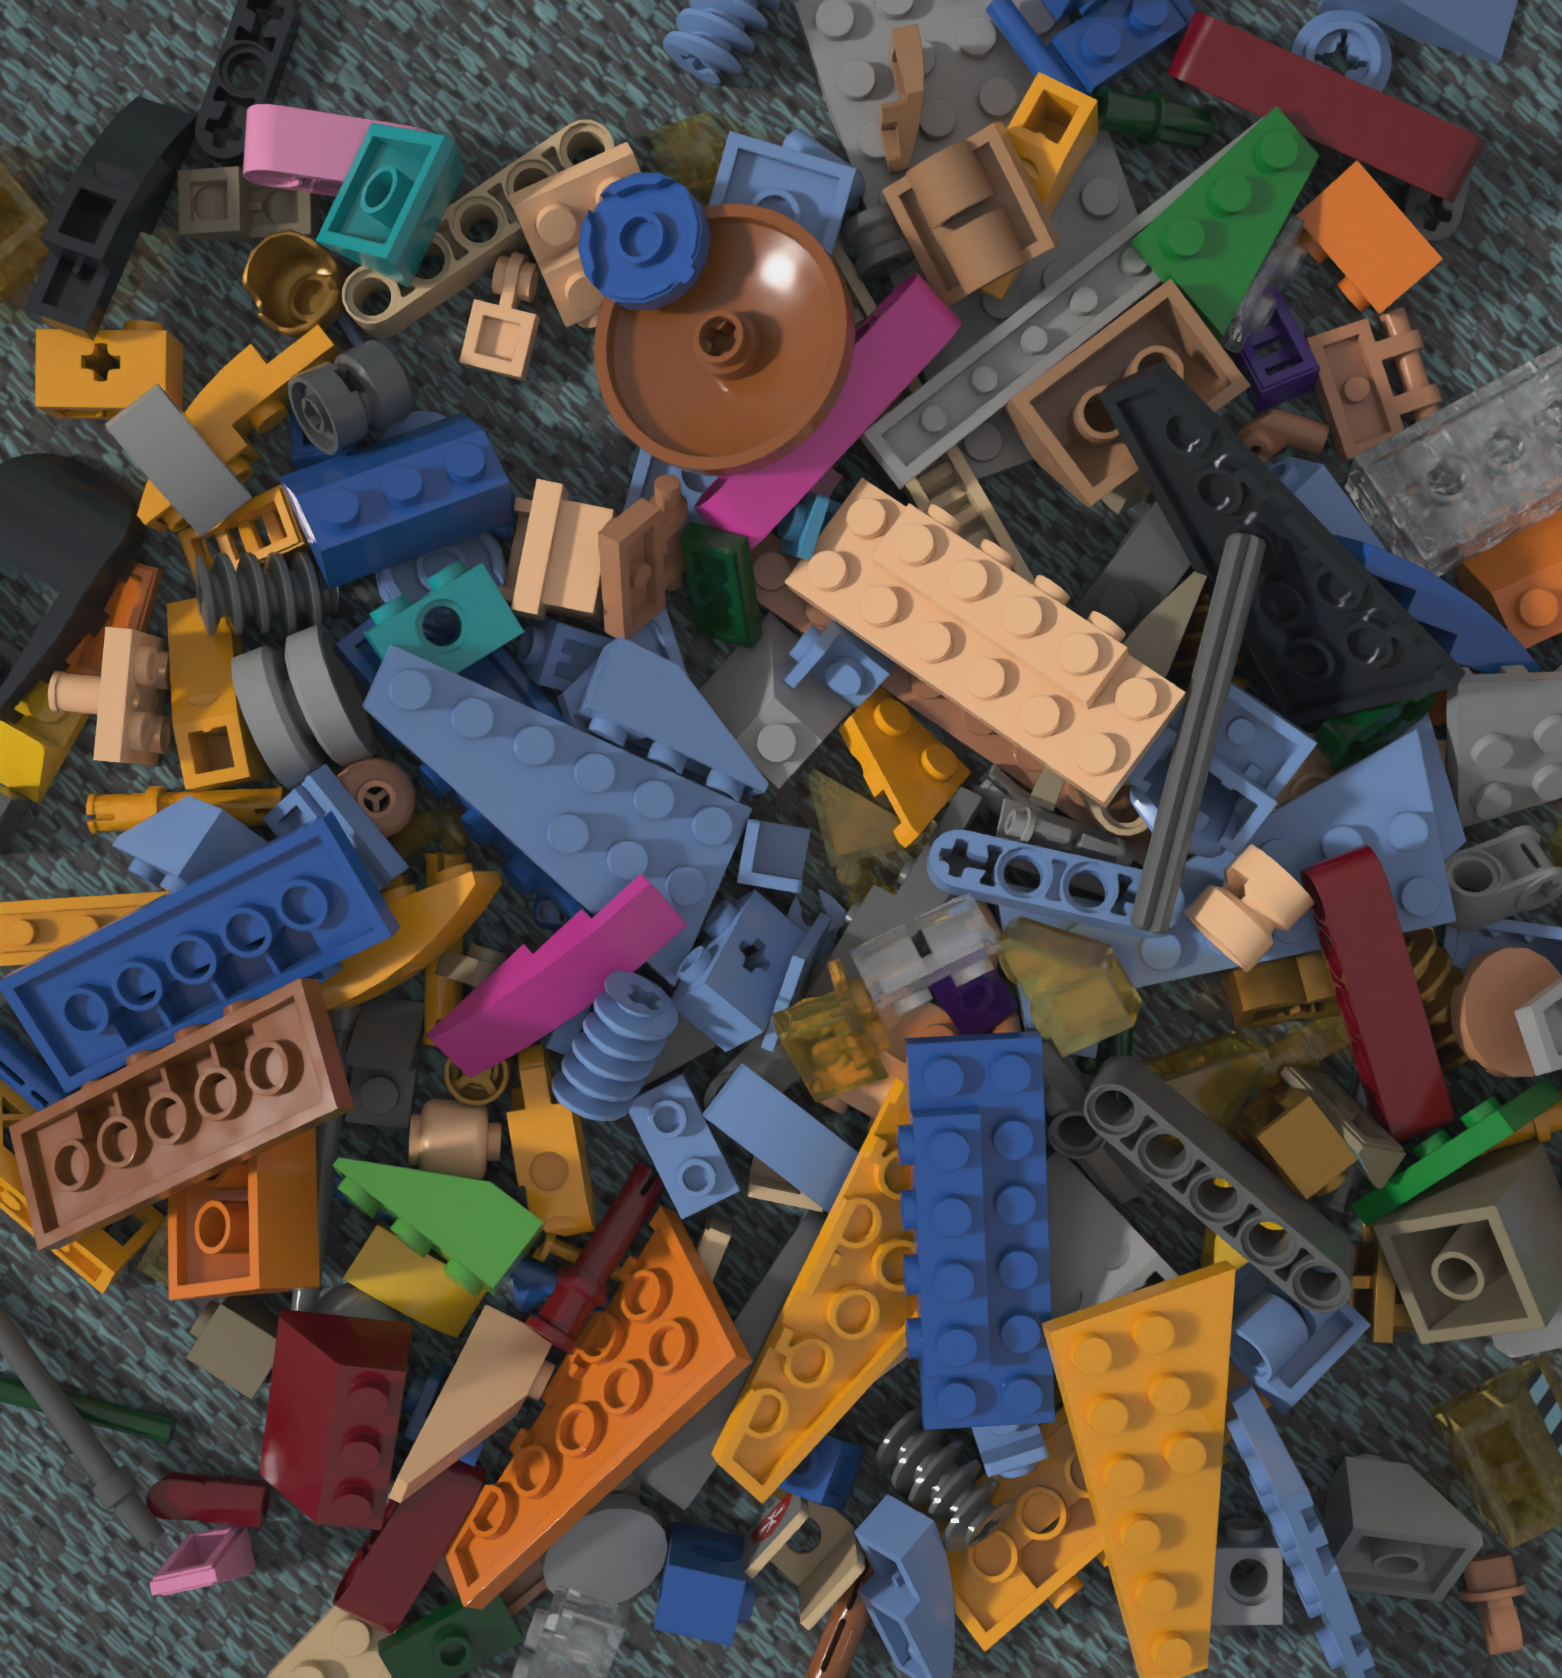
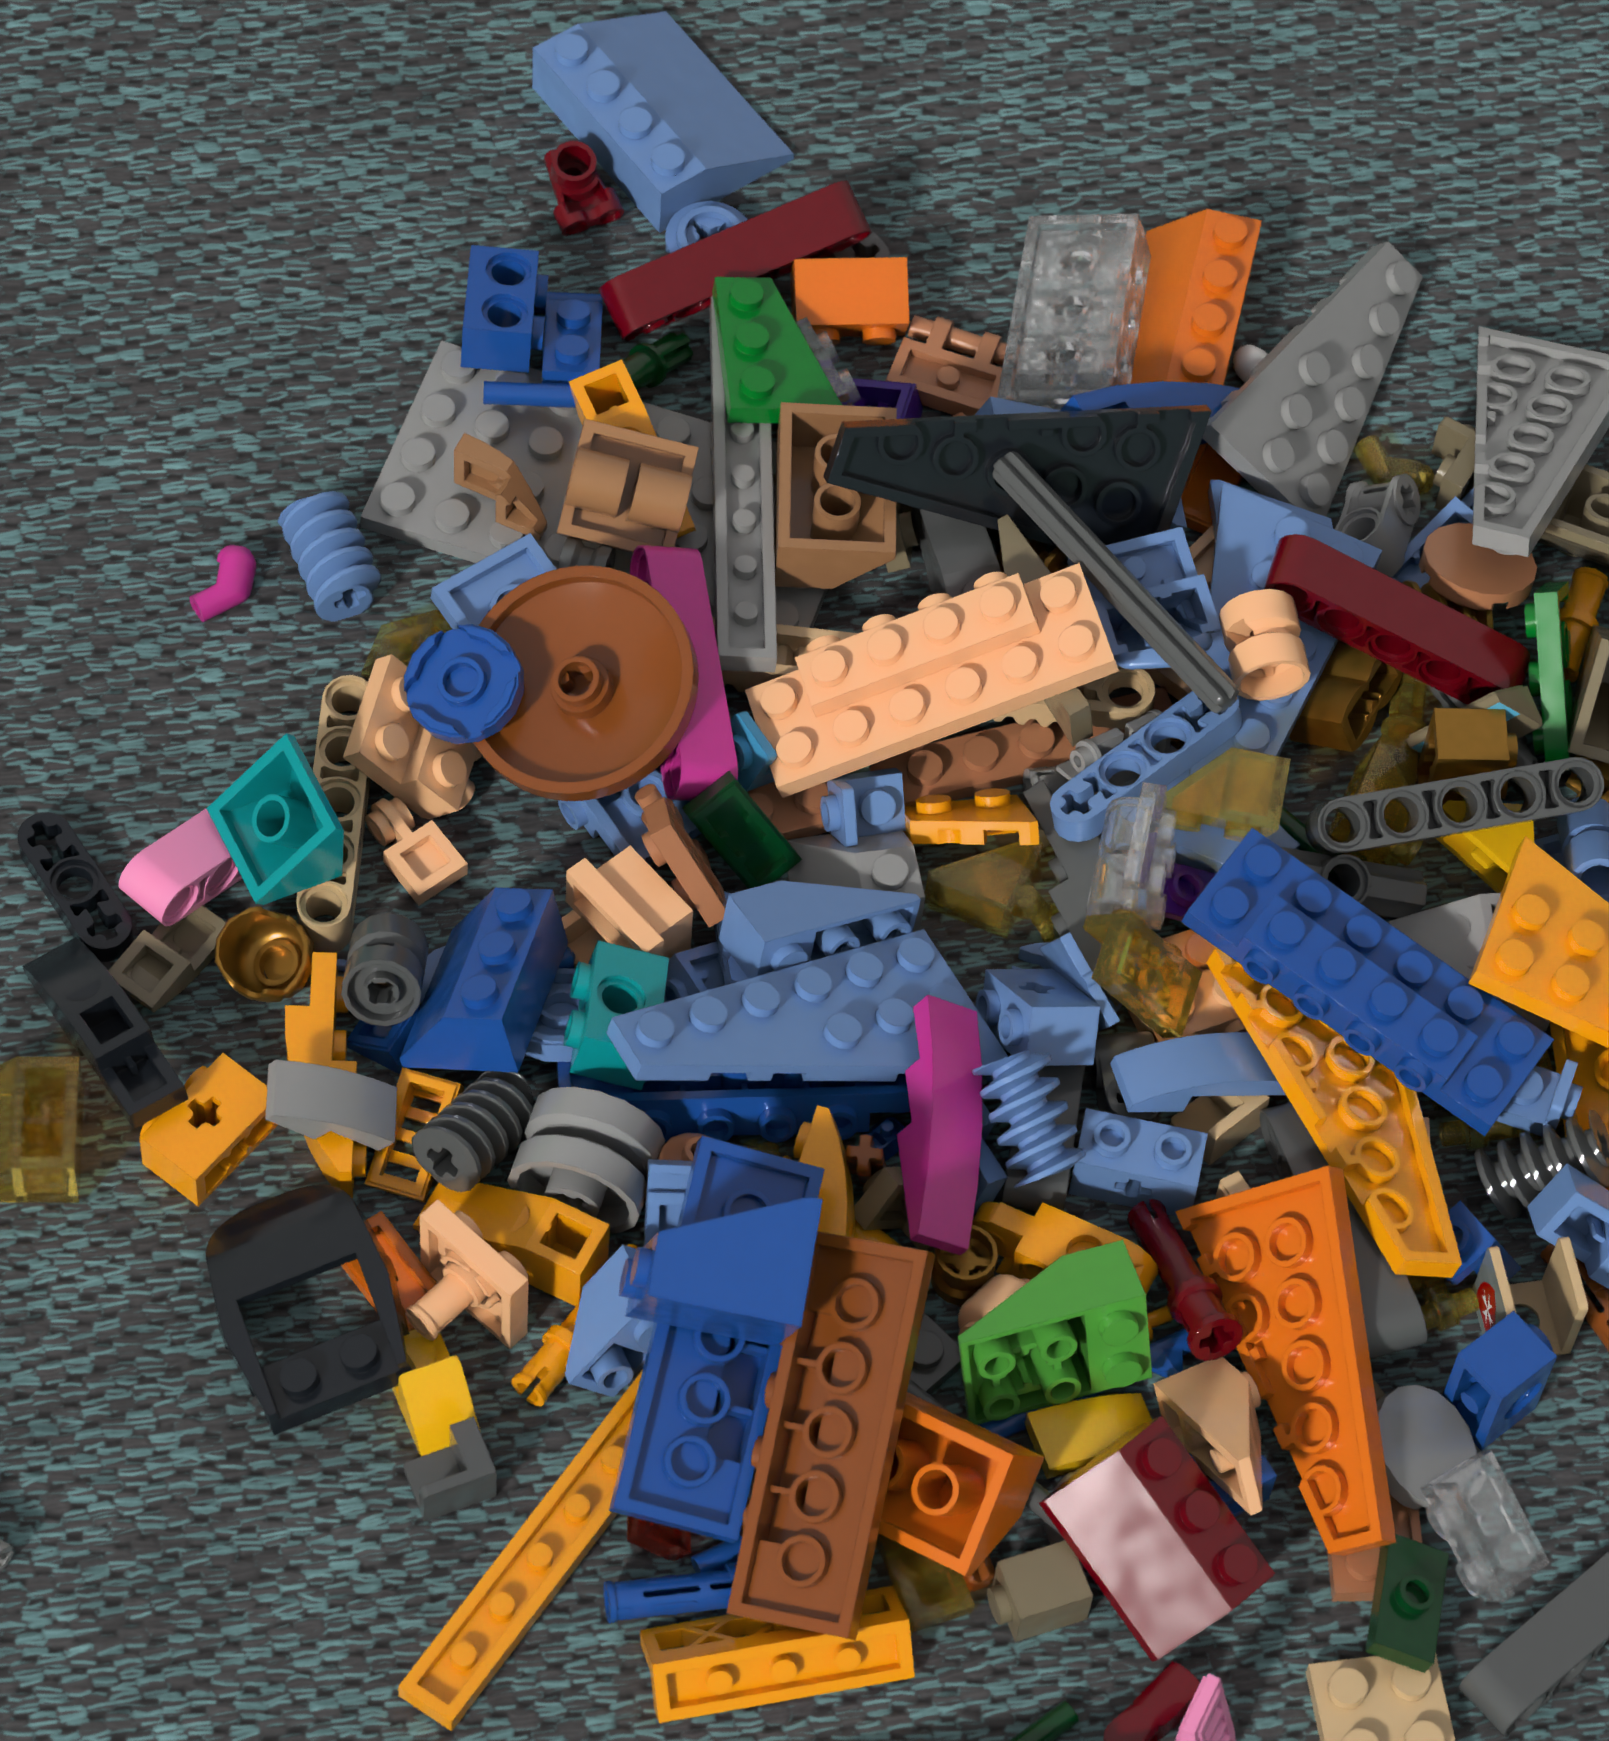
camera: 55 degrees left, 30 degrees down
(194, 946) = (729, 1273): none -> blue slope
(401, 1556) = (1308, 1592): dark red beam -> none
(492, 929) = (865, 1158): none -> dark orange axle
(773, 856) = (971, 953): medium blue panel -> none
(1362, 732) = (1199, 509): dark green beam -> none

